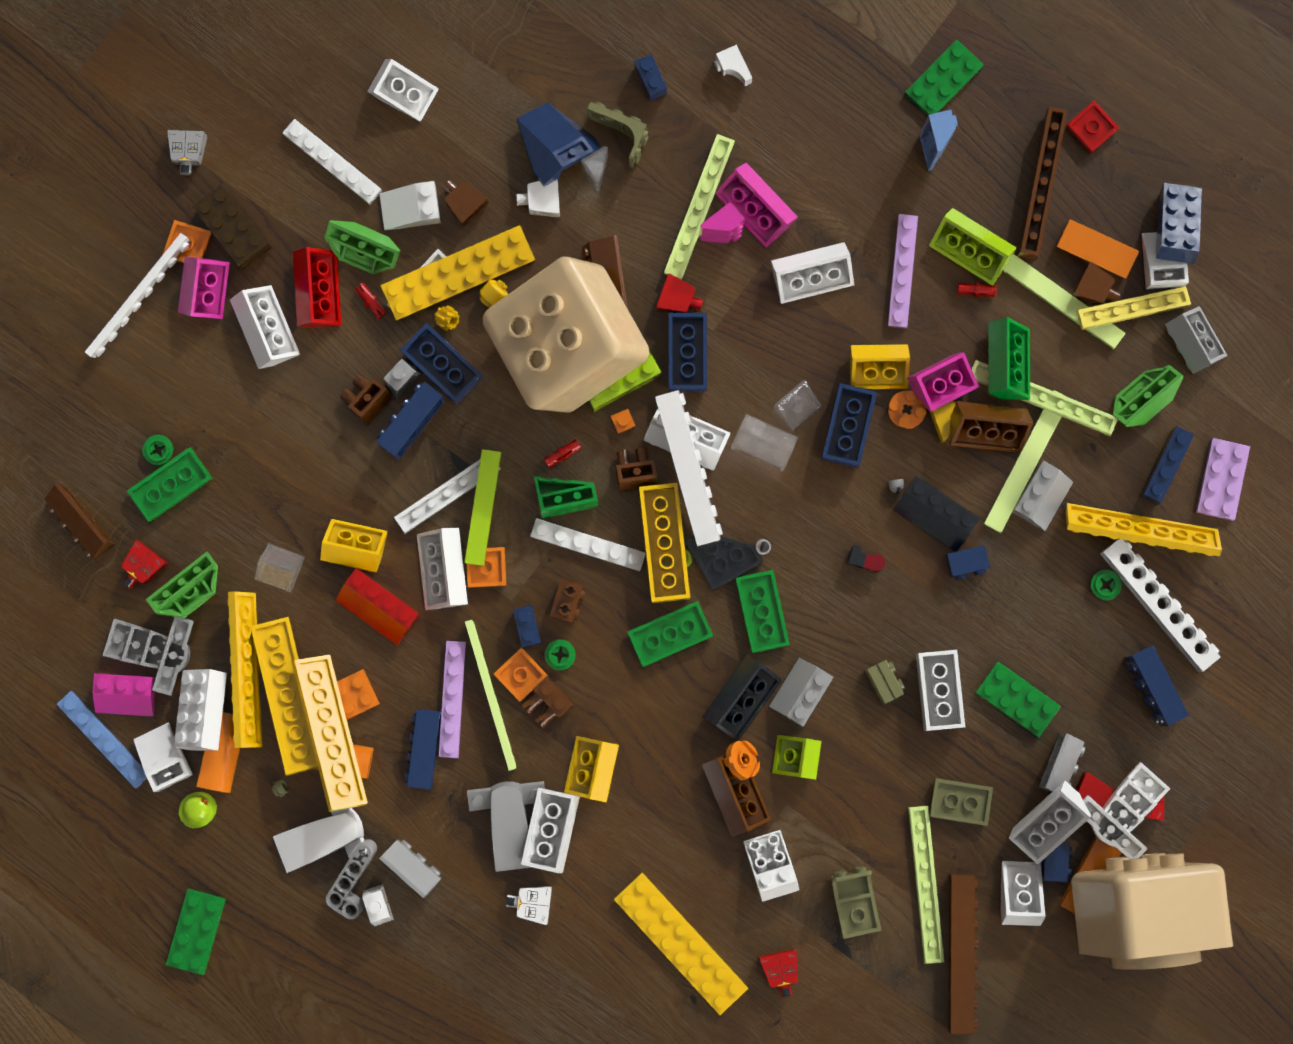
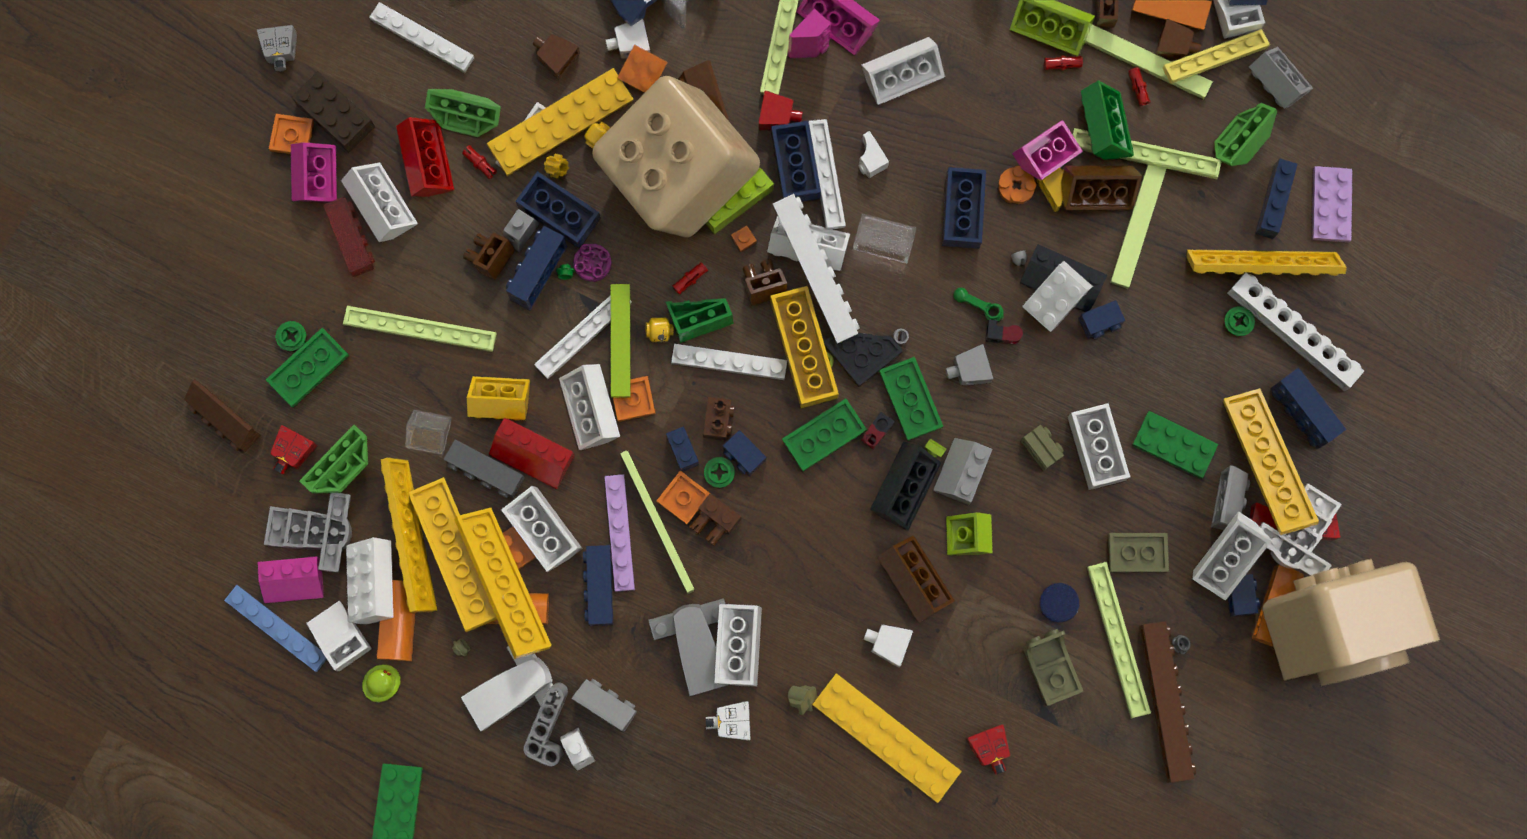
camera: 10 degrees left, 5 degrees down
(143, 290) = (247, 194): white plate -> none
(229, 358) = (349, 237): none -> clear red brick
(286, 462) = (419, 328): none -> yellowish green tile
(328, 614) = (484, 469): none -> dark grey brick
(376, 684) = (541, 528): none -> white slope
(410, 206) = (504, 67): white slope -> none
(439, 427) = (565, 272): none -> green plate
(467, 422) = (592, 262): none -> magenta tile
(523, 502) = (658, 329): none -> yellow head
(548, 231) = (641, 69): none -> orange plate
(587, 640) = (743, 453): none -> dark blue brick
(591, 769) = (768, 578): yellow slope -> none
(604, 891) = (802, 698): none -> olive piece
(699, 851) = (889, 643): none -> white torso
(716, 369) = (827, 175): none -> white plate
(723, 638) = (877, 430): none -> leg
(734, 762) = (917, 552): orange plate -> none
(766, 361) = (874, 159): none -> white arch
(771, 865) = (963, 645): white slope -> none
(777, 665) = (935, 449): none -> lime plate
(797, 405) = (910, 196): clear slope -> none
(827, 589) = (971, 367): none -> light grey torso
(831, 513) = (961, 295): none -> green piece
(873, 838) = (1059, 602): none -> clear blue tile
(879, 366) = (984, 147): yellow slope -> none
(902, 271) = (989, 57): lavender plate -> none
(925, 532) = (1057, 296): none -> white brick
(990, 899) = (1181, 644): none -> dark grey plate
(1022, 893) = (1215, 633): white slope -> none
(1043, 495) = (1162, 245): light grey slope -> none
(1049, 326) = (1139, 86): none -> red pin
(1107, 734) = (1270, 462): none -> yellow plate

